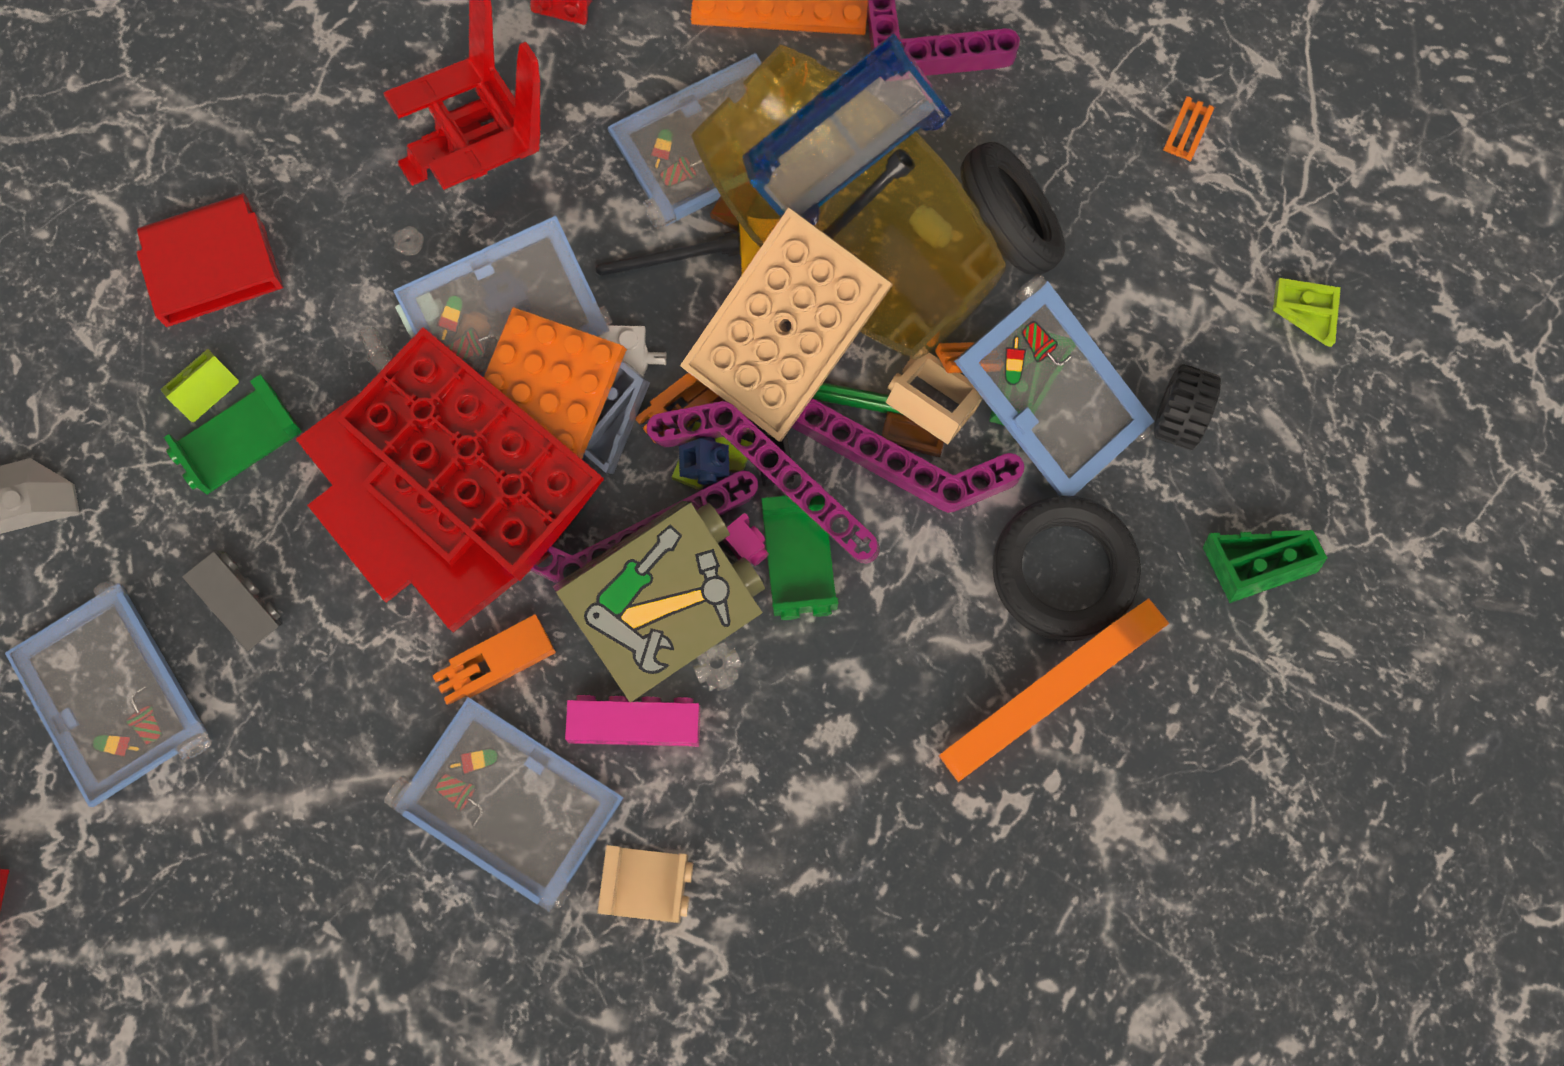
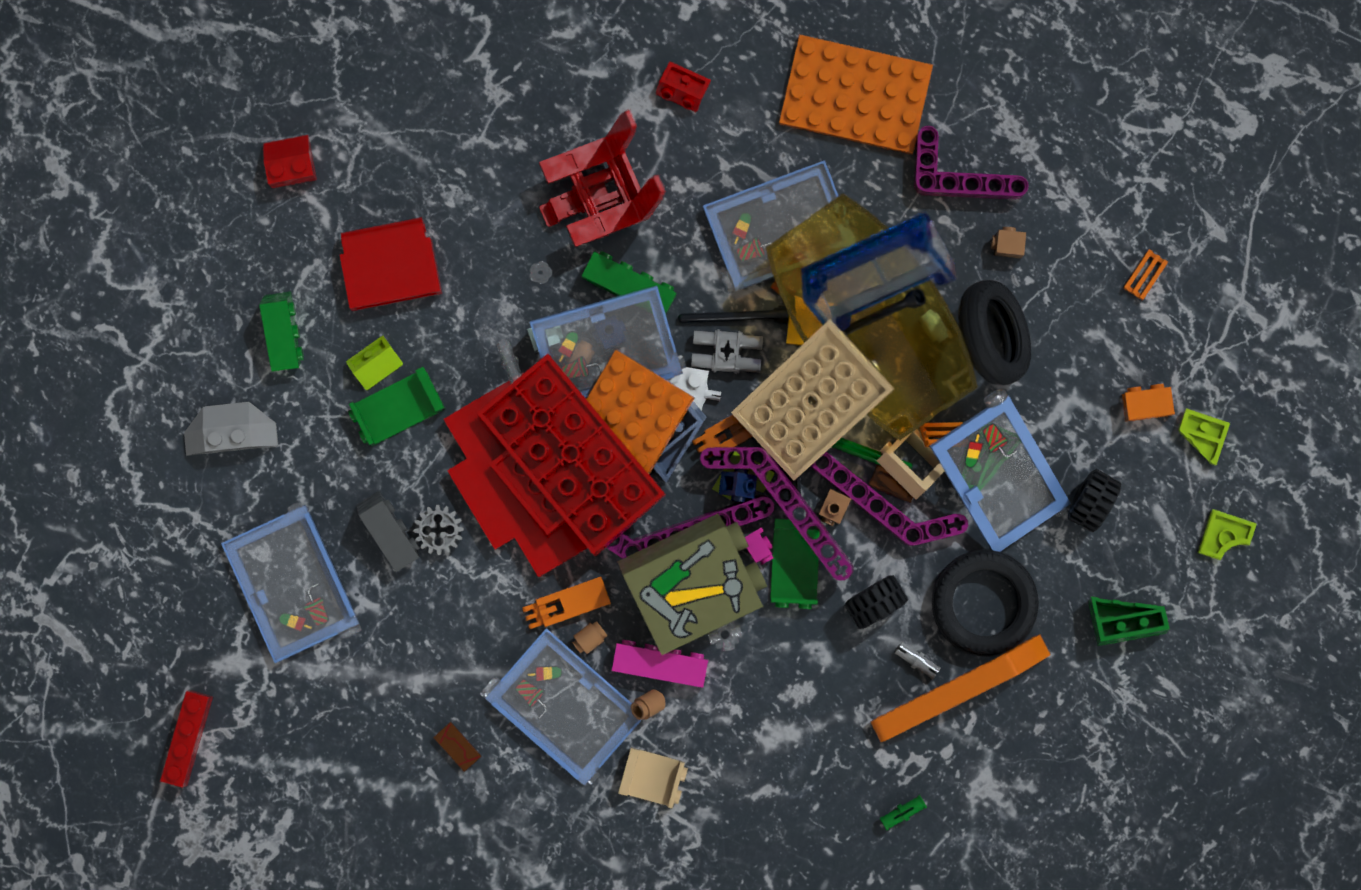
camera: 10 degrees right, 10 degrees up
(66, 158) = (289, 161): none -> red slope
(66, 360) = (281, 331): none -> green wedge
(320, 598) = (448, 539): none -> light grey gear
(362, 885) = (457, 746): none -> reddish brown tile
(489, 222) = (621, 280): none -> green brick
(530, 701) = (589, 637): none -> medium nougat brick
(624, 780) = (648, 705): none -> medium nougat brick
(655, 288) = (719, 340): none -> light grey pin
(840, 474) = (833, 508): none -> medium nougat brick
(918, 585) = (876, 602): none -> black tyre
(988, 661) = (917, 660): none -> light grey pin
(990, 892) = (917, 805): none -> green pin
(1008, 114) = (1009, 243): none -> medium nougat brick
(1228, 280) = (1147, 404): none -> orange brick
(1363, 429) = (1223, 533): none -> lime tile

